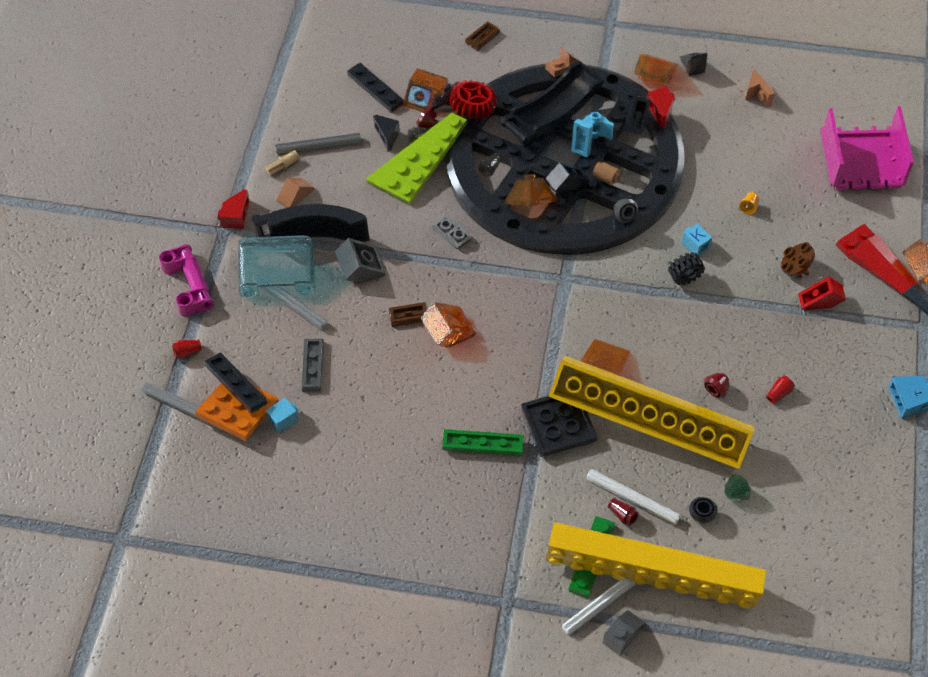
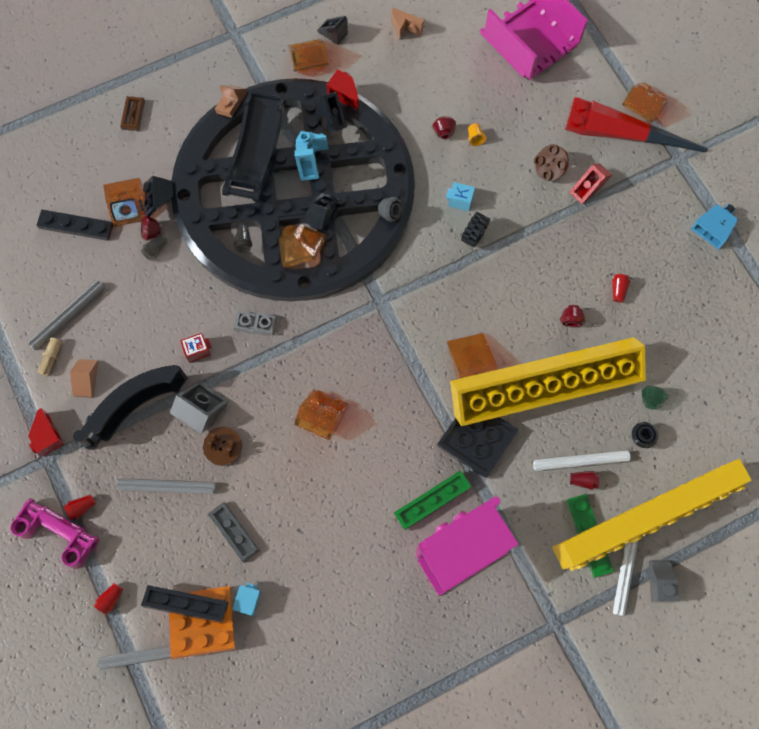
camera: 40 degrees left, 15 degrees up
(218, 274) = (77, 507): none -> red cone
(276, 263) = (128, 464): clear light blue windscreen -> none
(357, 307) = (214, 442): none -> reddish brown plate
(387, 129) = (120, 261): black slope -> none
(392, 220) = (196, 347): none -> red brick
(408, 317) = (267, 437): reddish brown tile -> none
(414, 165) = (172, 286): lime wing -> none
(473, 99) = (170, 190): red gear -> none
(475, 478) = (464, 546): none -> dark pink windscreen
(606, 173) = (349, 184): medium nougat brick -> none
(726, 181) = (444, 127): none -> dark red cone

